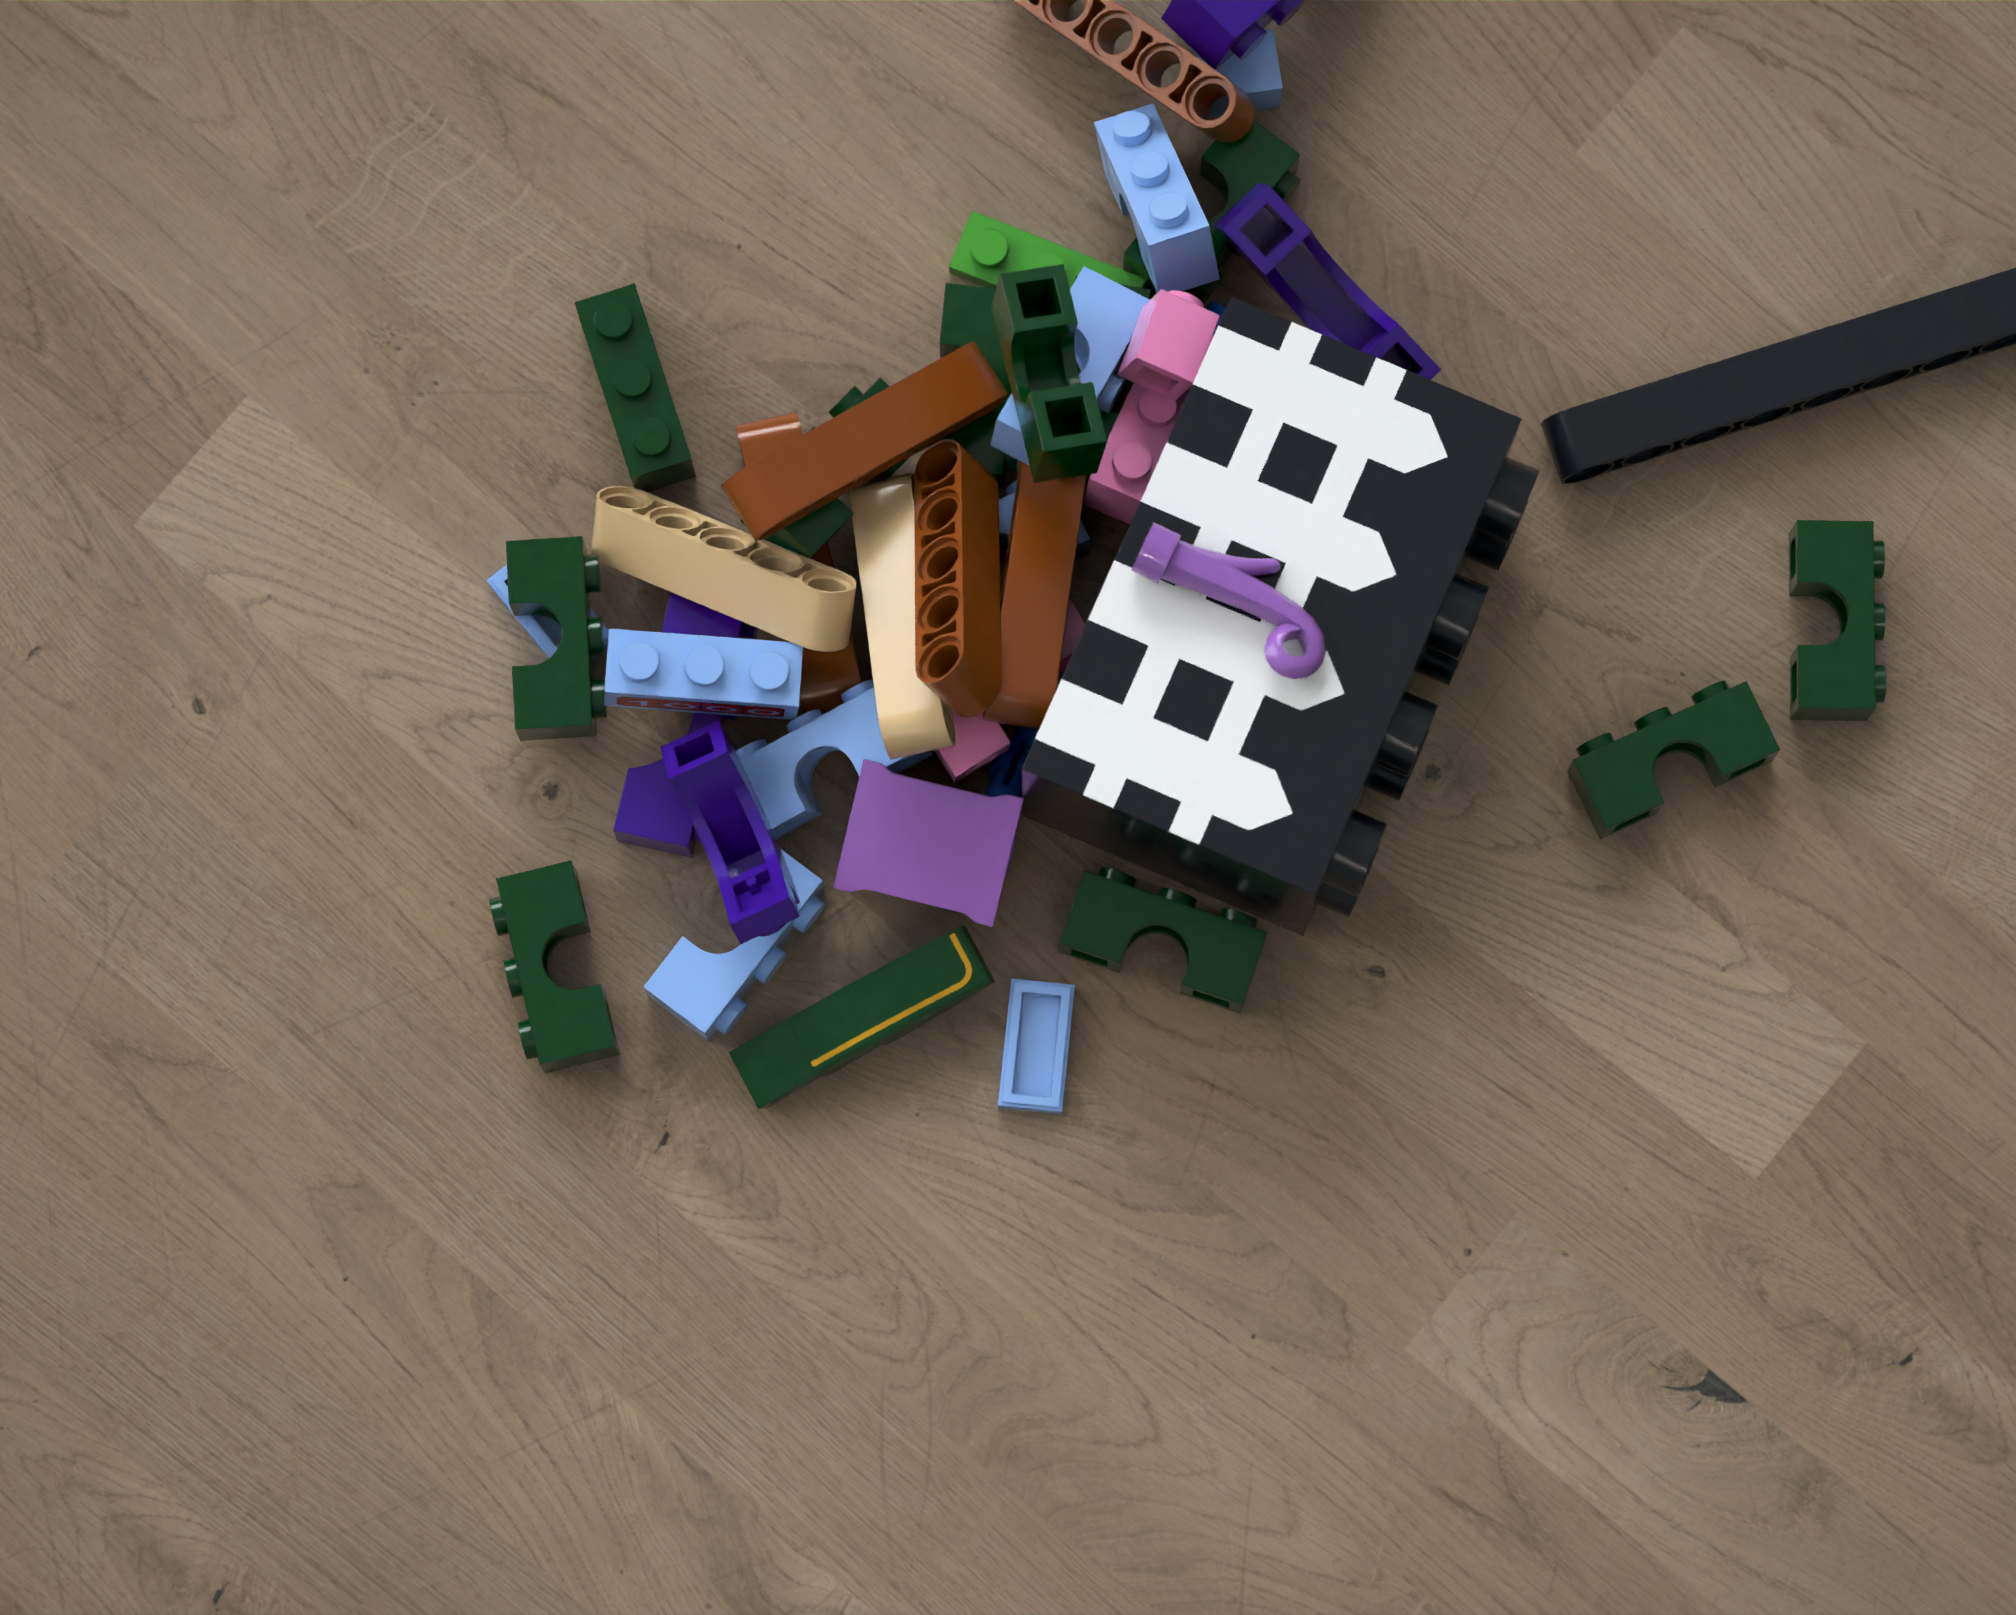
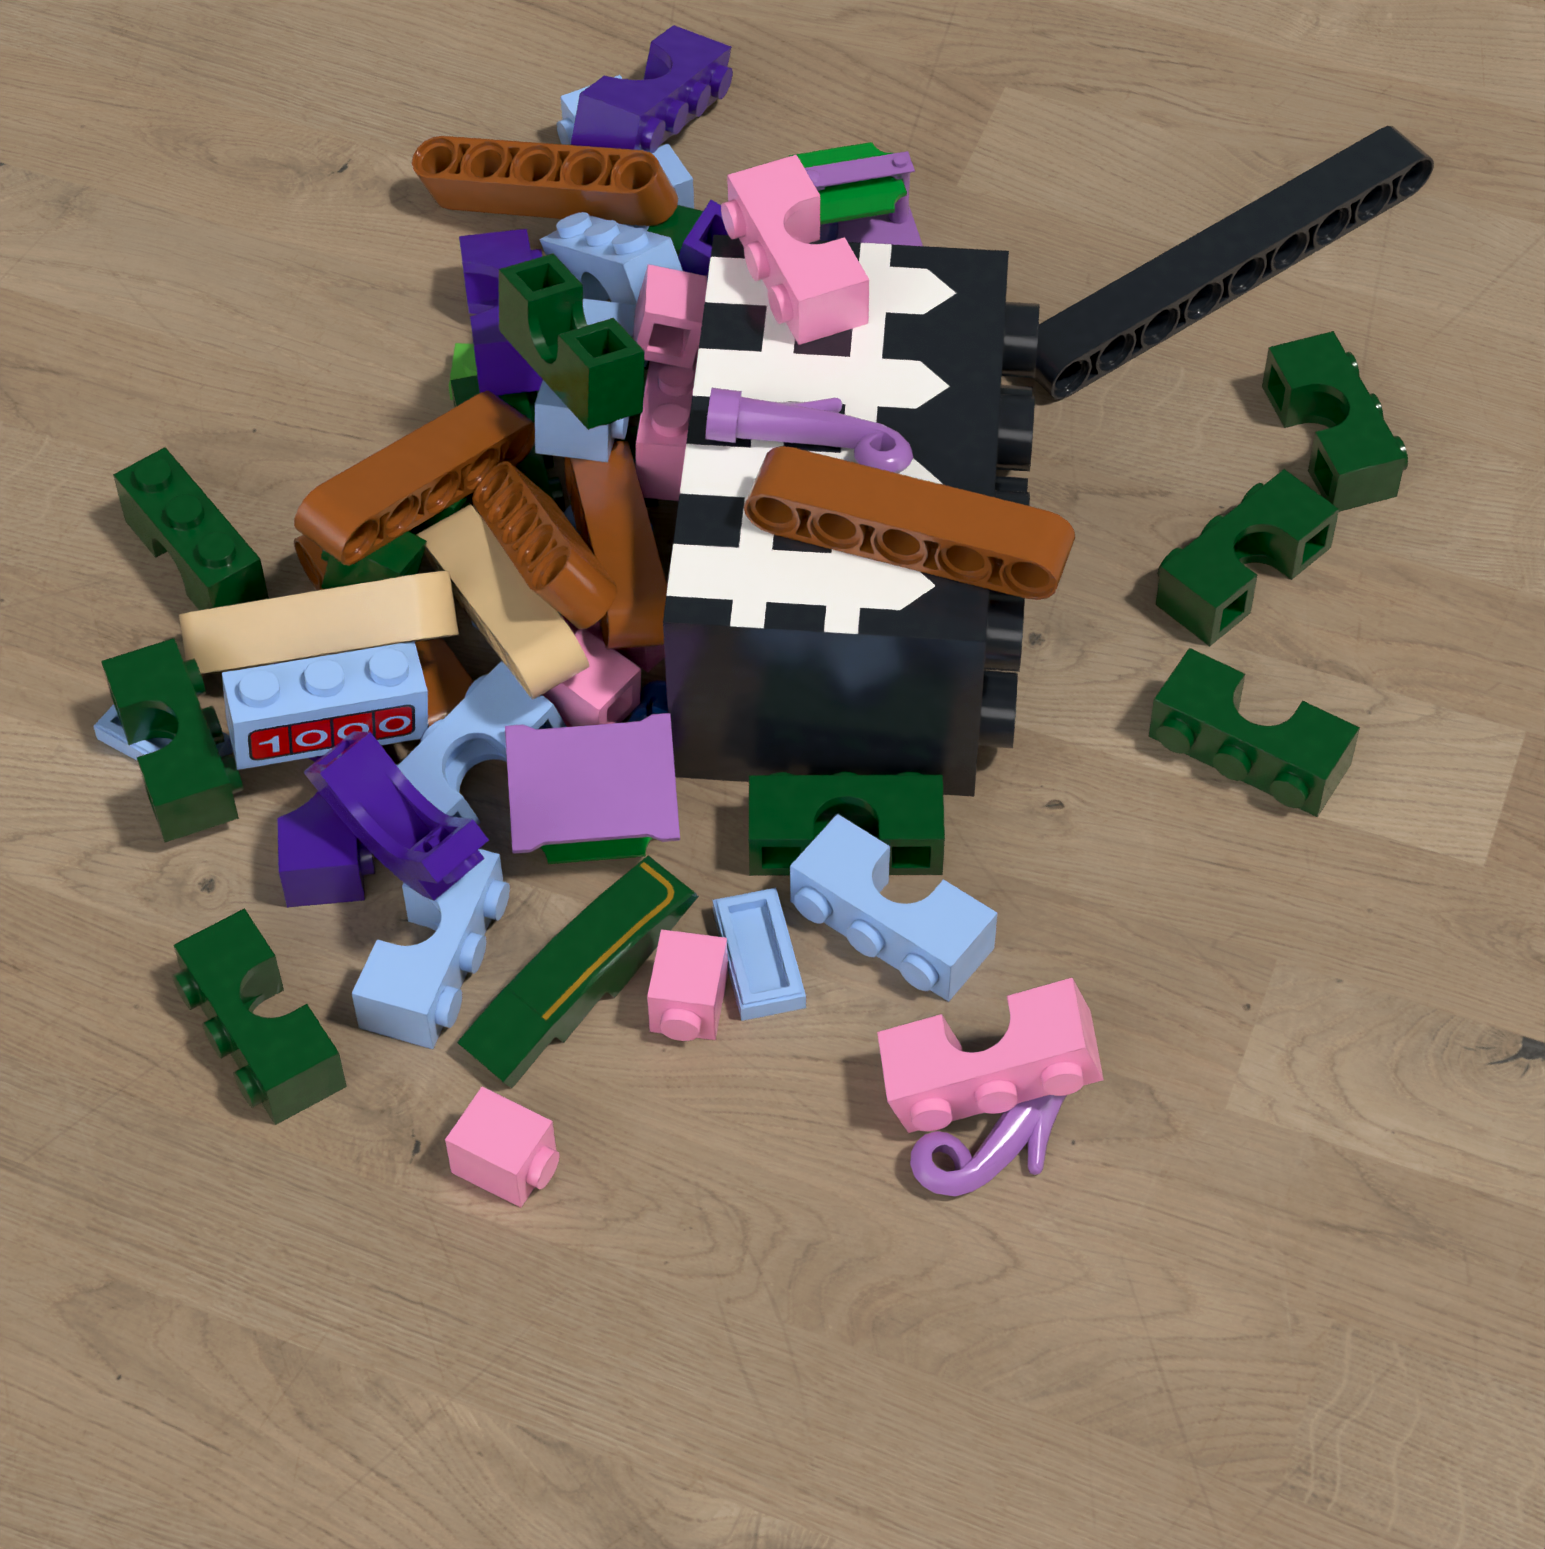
camera: 20 degrees left, 25 degrees down
(737, 1181) = (502, 1147): none -> bright pink brick
(954, 1070) = (687, 985): none -> bright pink brick
(1040, 154) = (497, 362): none -> dark purple arch
(1197, 1098) = (928, 941): none -> light blue arch
(1213, 1307) = (1024, 1123): none -> medium lavender plant
(1249, 1264) = (1043, 1053): none -> bright pink arch
(1287, 746) = (910, 522): none -> dark orange beam
(1298, 422) = (808, 285): none -> bright pink arch
(1432, 170) = (863, 194): none -> piece
(1619, 1016) = (1291, 761): none -> dark green arch

